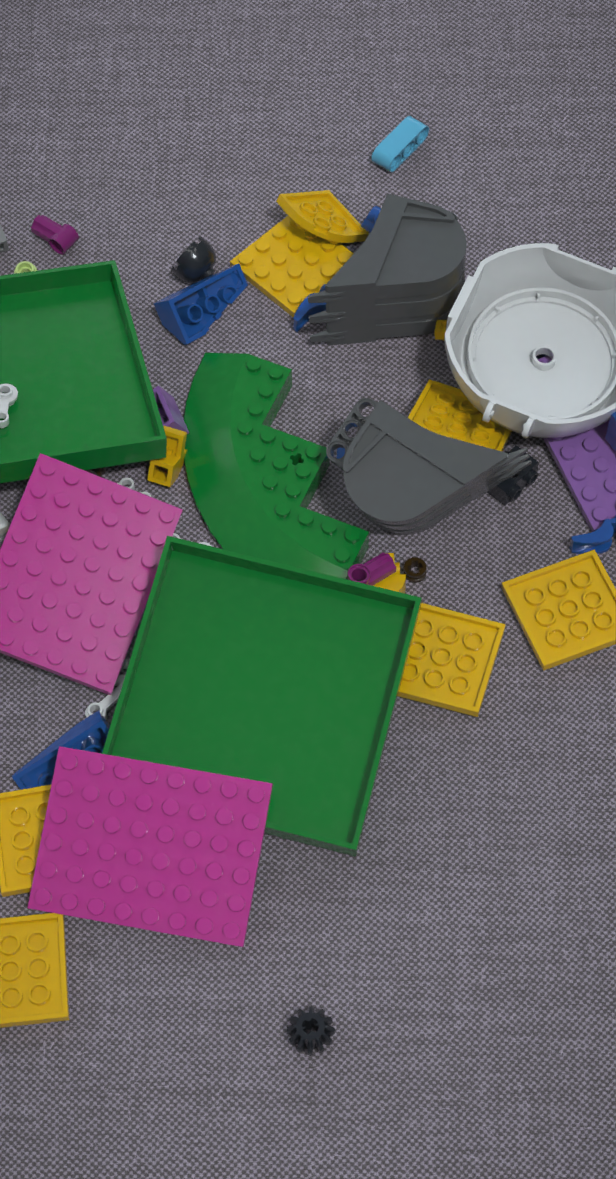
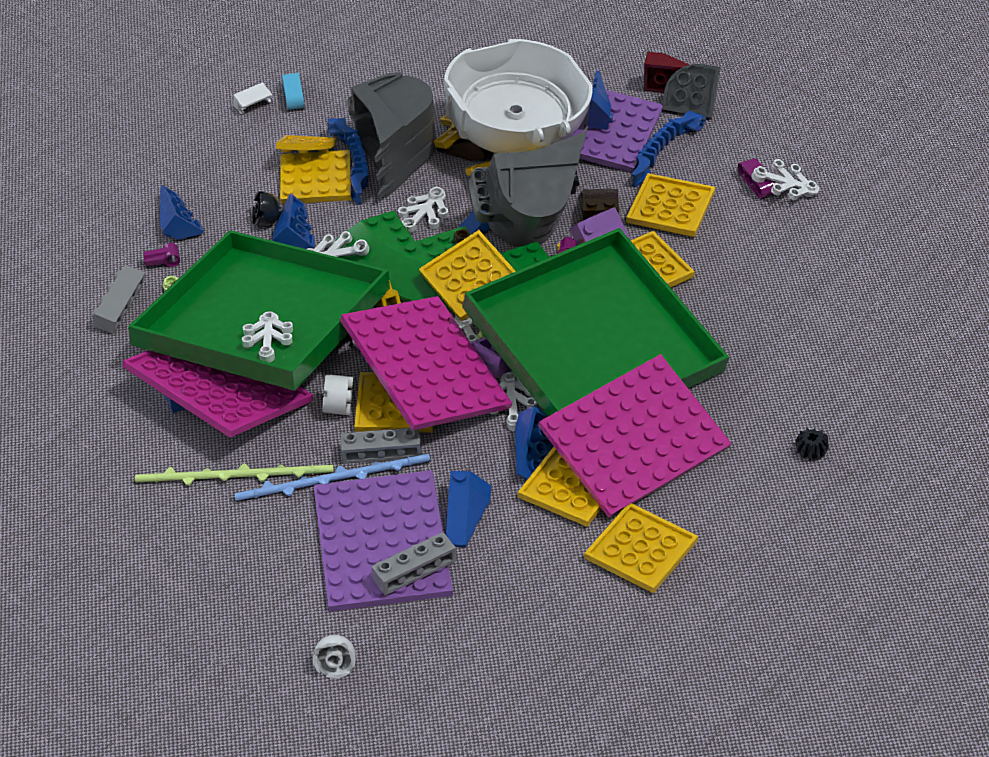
camera: 50 degrees left, 15 degrees down
(121, 201) = (175, 218): none -> blue wedge
(172, 352) = (360, 247): none -> white plant
(251, 509) = (464, 268): none -> yellow plate
(297, 457) = (460, 235): none -> dark brown plate
(337, 391) = (435, 195): none -> white plant
(353, 118) = (251, 96): none -> white hinge
(446, 579) = (597, 226): none -> medium lavender slope
(500, 543) = (599, 200): none -> dark brown slope

